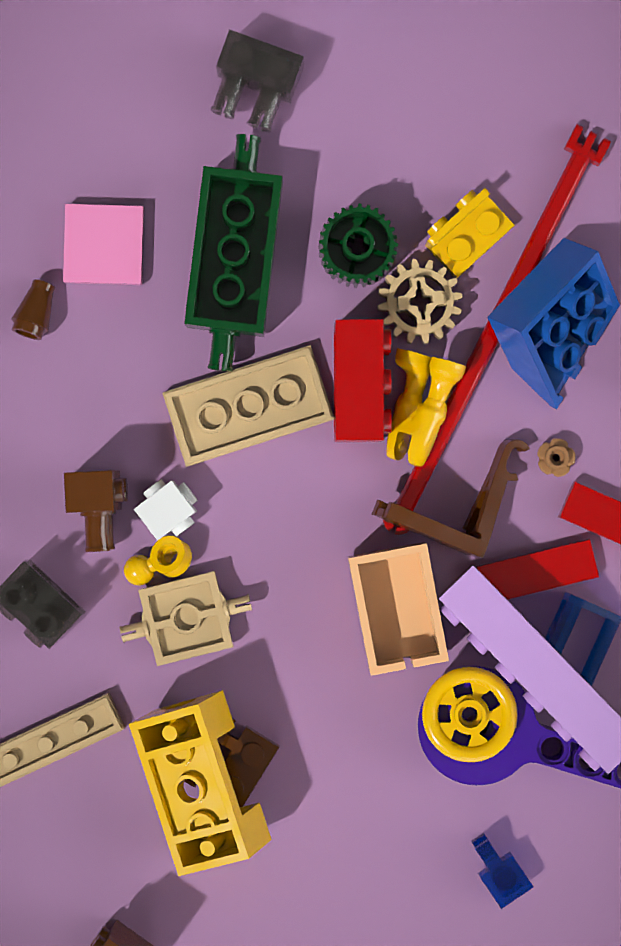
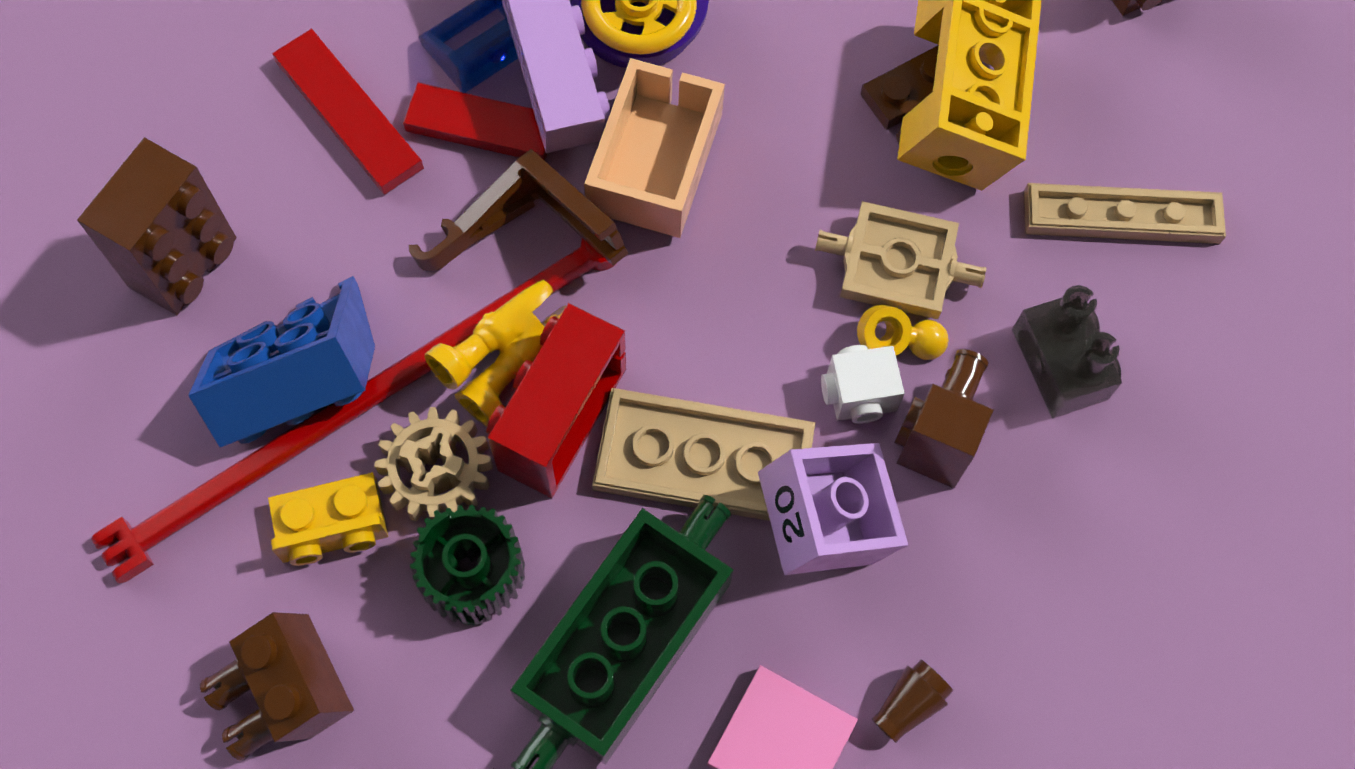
camera: 155 degrees left, 20 degrees down
(142, 401) = (832, 508): none -> lavender brick
(427, 117) = (289, 679): none -> reddish brown brick
(546, 462) = (389, 235): medium nougat plate -> none

